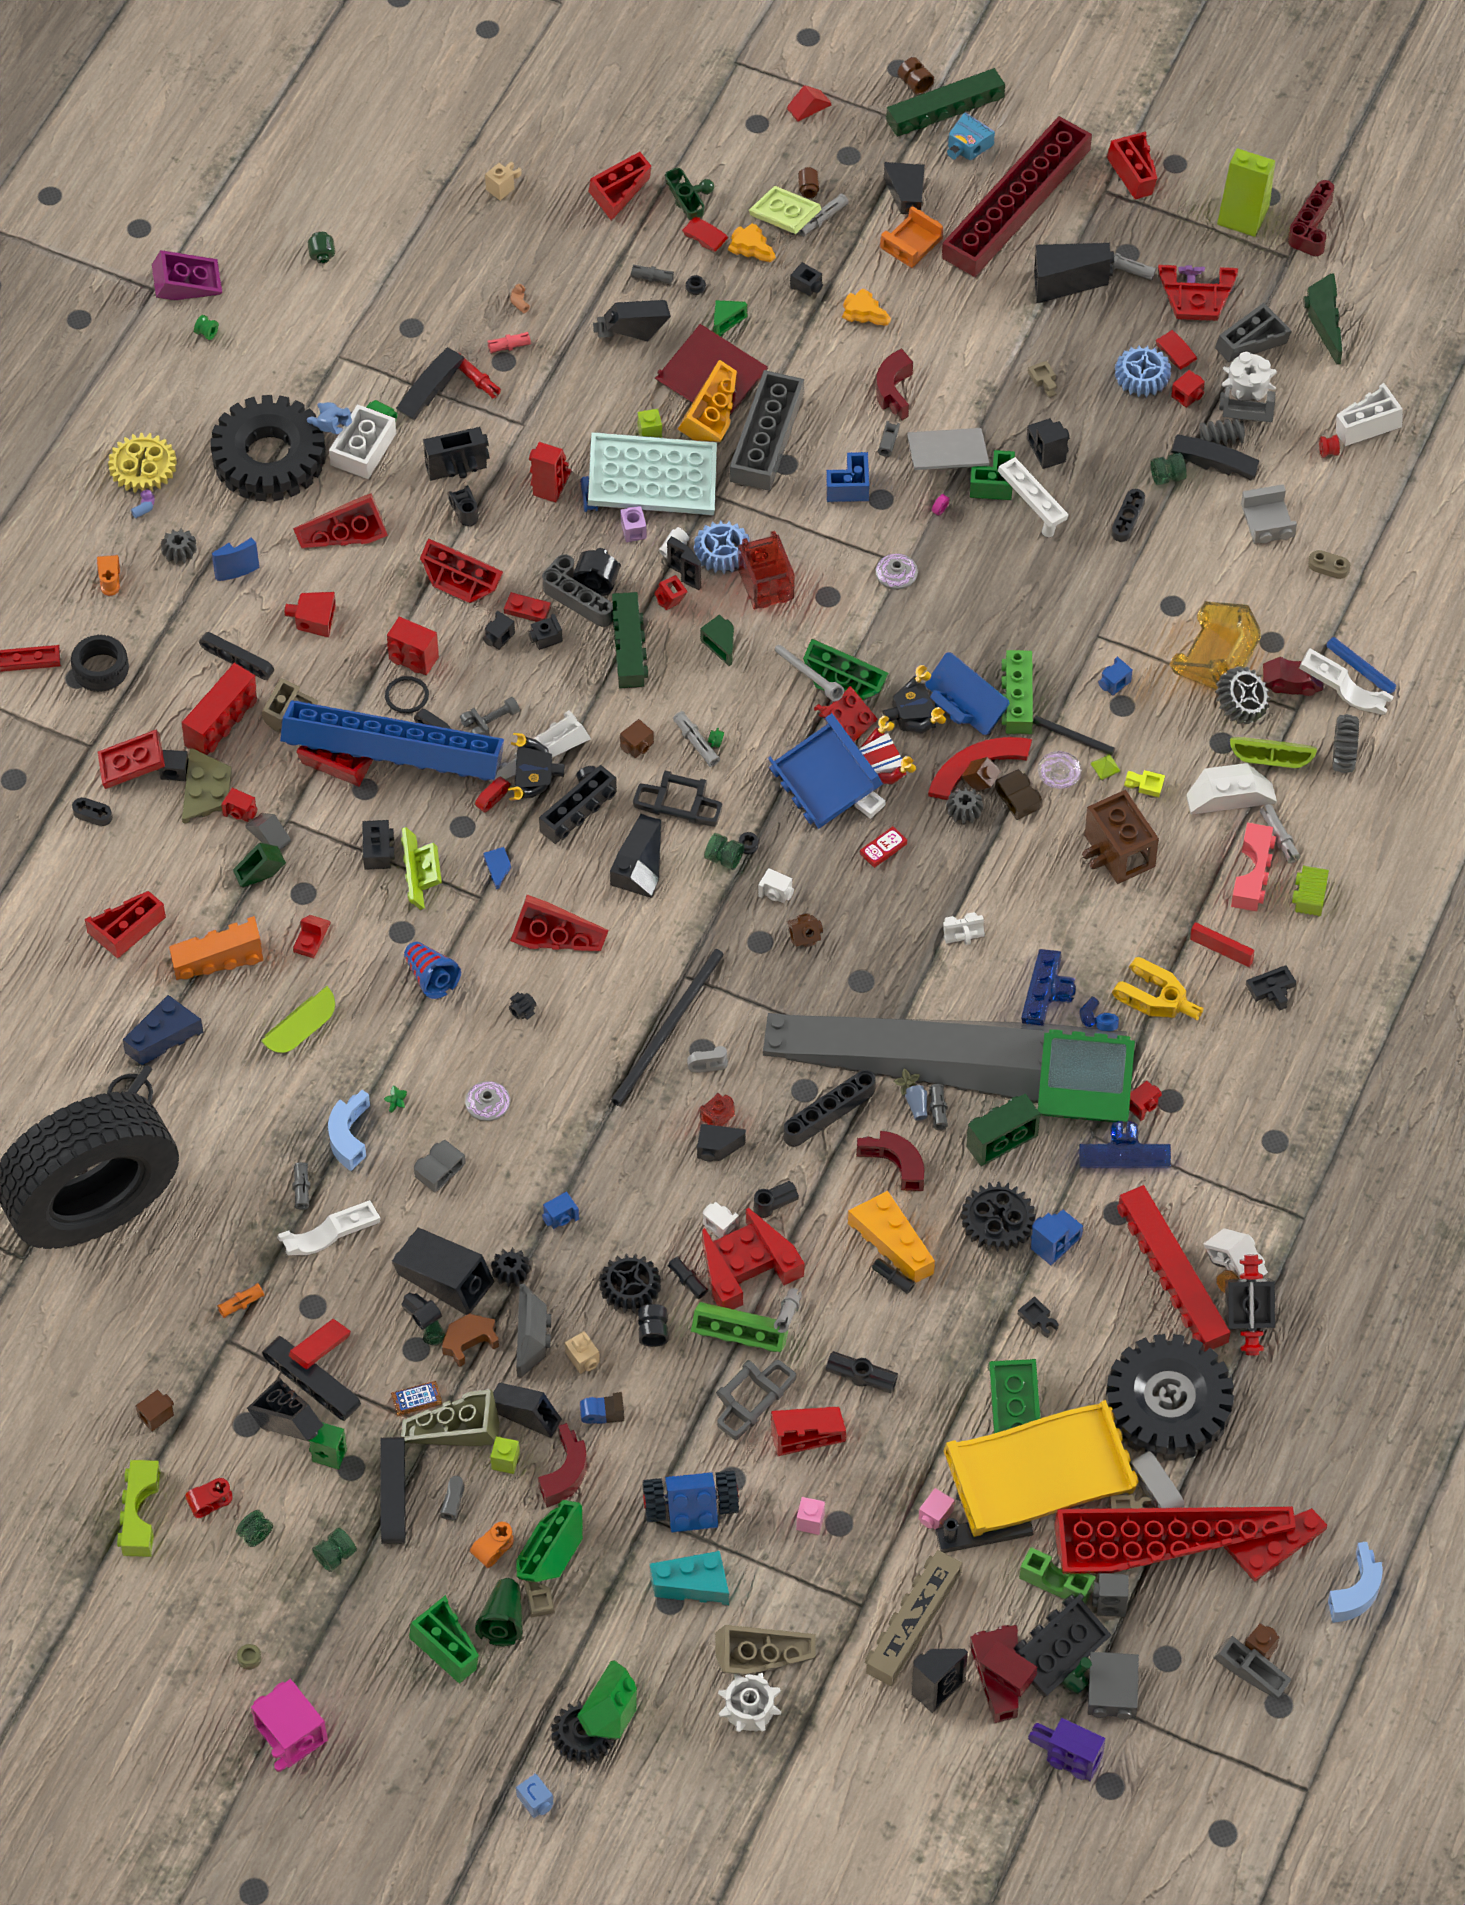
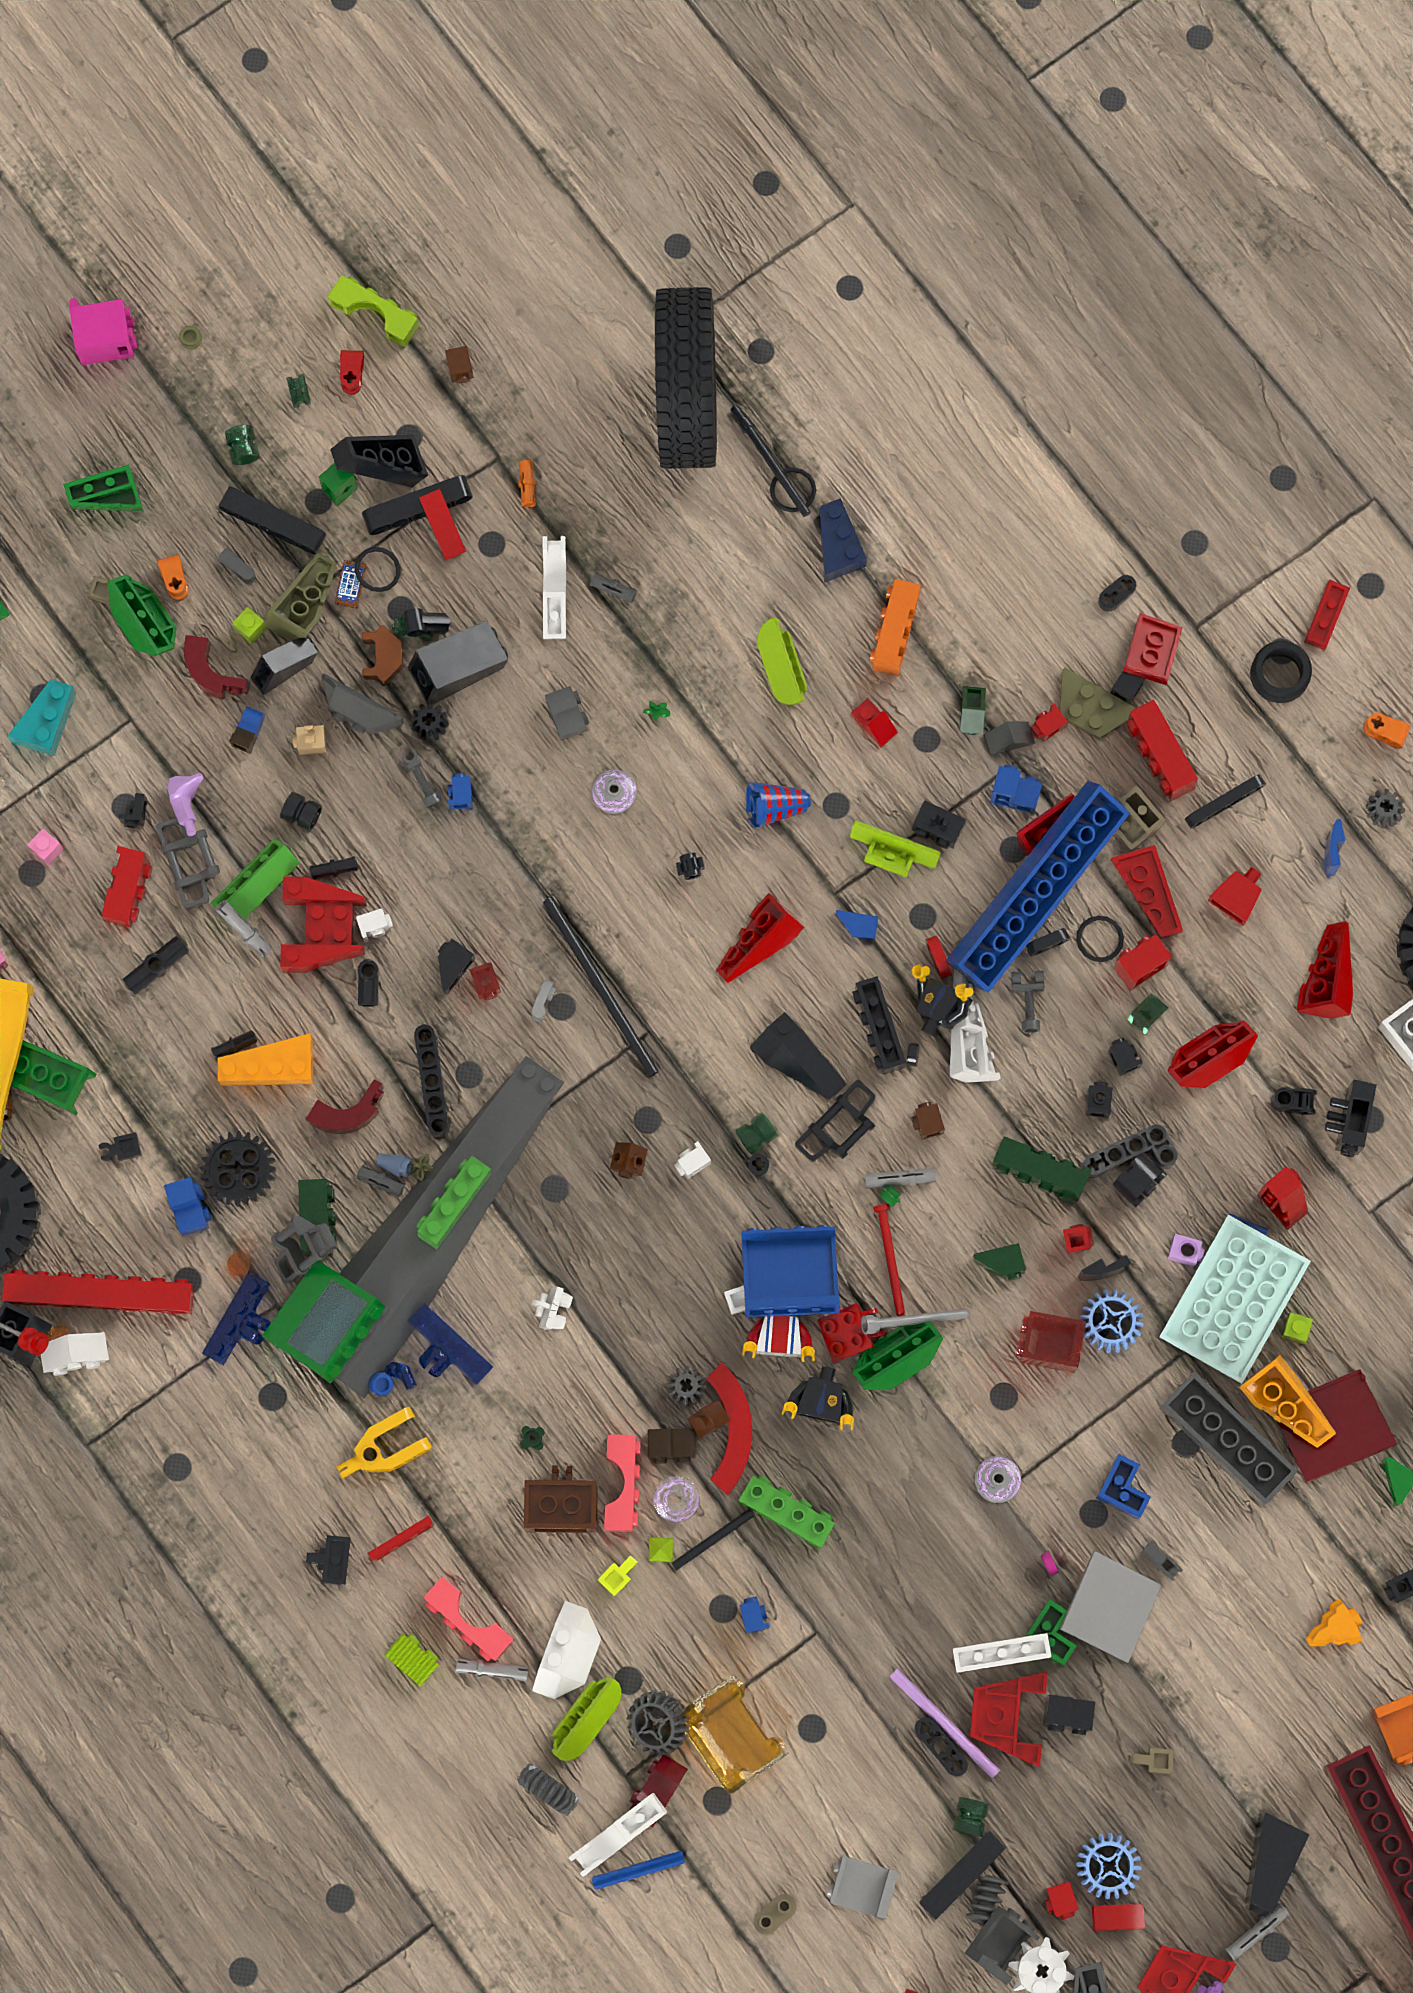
camera: 120 degrees right, 20 degrees up
(126, 924) = (968, 560): red wedge -> none
(314, 802) = (1014, 791): none -> blue brick
(342, 676) = (1147, 883): none -> red wing
(344, 1145) = (647, 643): light blue arch -> none
(387, 1365) = (385, 551): none -> black piece
(453, 630) = (1147, 1013): none -> clear green slope
(502, 1615) = (104, 550): dark green cone -> none
(527, 607) = (1141, 1101): red plate -> none
(558, 1253) = (431, 798): none -> dark grey bar
(626, 1271) = (362, 809): black gear -> none
(679, 534) = (1142, 1278): white cone -> none
(691, 1499) = (110, 750): blue brick -> none
(693, 1432) = (181, 792): none -> lavender animal
(731, 739) = (890, 1258): none -> red bar
(731, 1458) = (138, 809): none -> black bracket
(883, 847) = (685, 1287): tile -> none
(892, 371) = (1233, 1596): dark red arch -> none
(925, 1025) = (454, 1202): none -> bright green brick
(965, 694) = (807, 1453): blue bracket -> none
(1021, 1116) = (292, 1250): none -> dark grey bar
(1046, 823) = (620, 1513): none -> coral arch
(1077, 489) = (997, 1715): none -> red wing
(1077, 889) = (527, 1433): none -> dark green plate
(1077, 1179) = (239, 1264): none -> clear orange tile
(1108, 521) = (944, 1723): none -> lavender piece
(1144, 1099) = (280, 1368): red brick -> none

